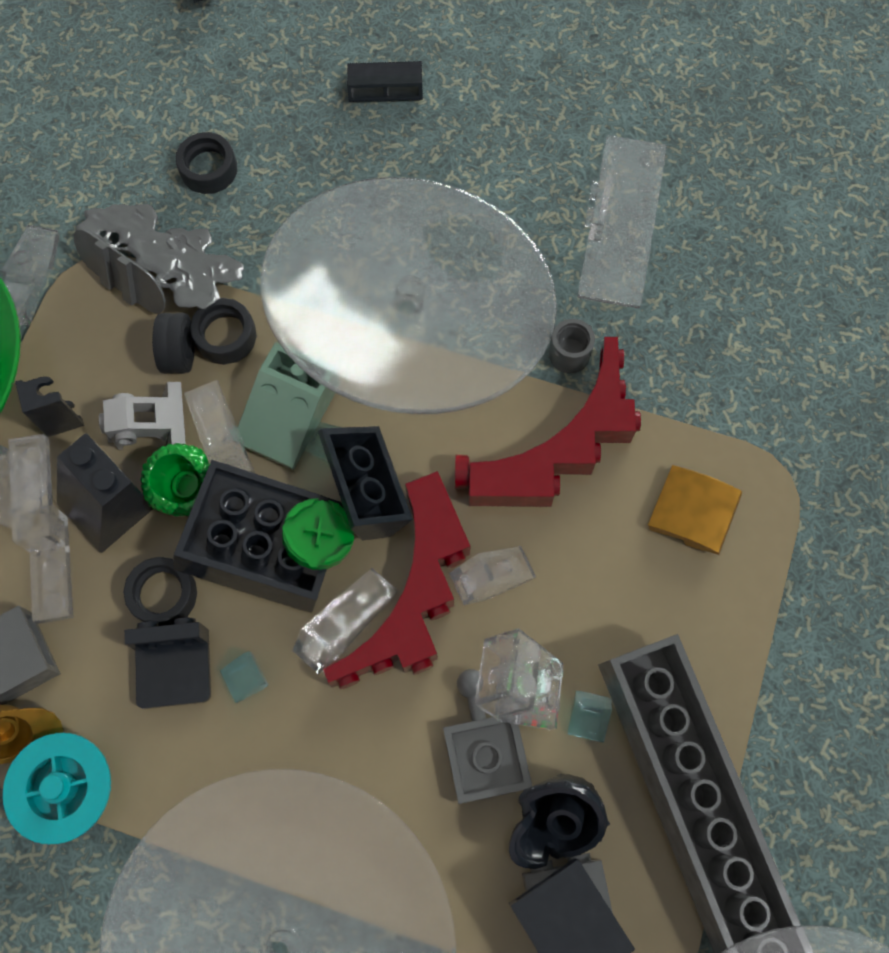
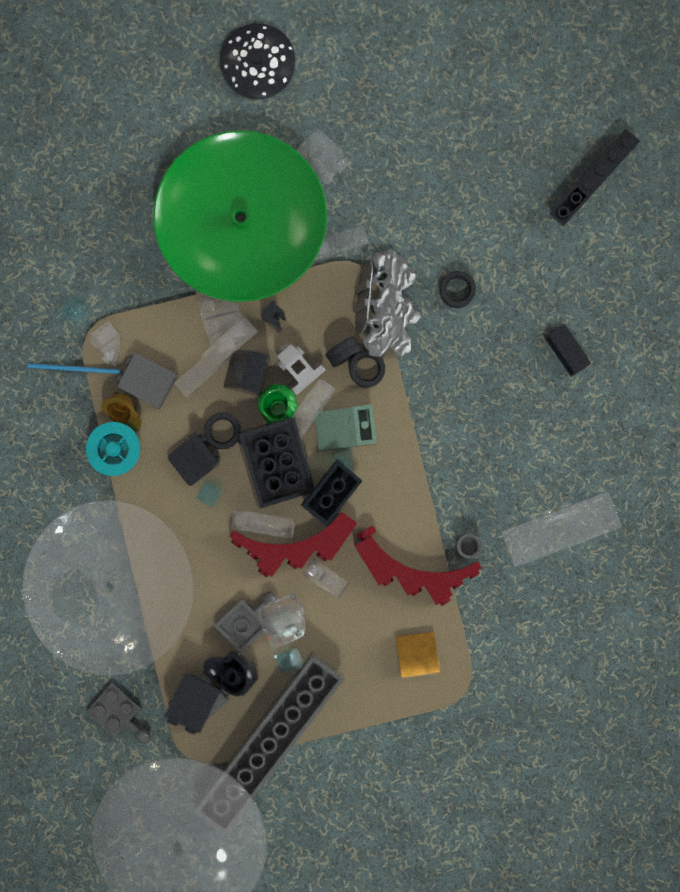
camera: 50 degrees right, 15 degrees up
(317, 534) = (291, 488): green tile -> none
(408, 295) = (482, 445): clear dish -> none

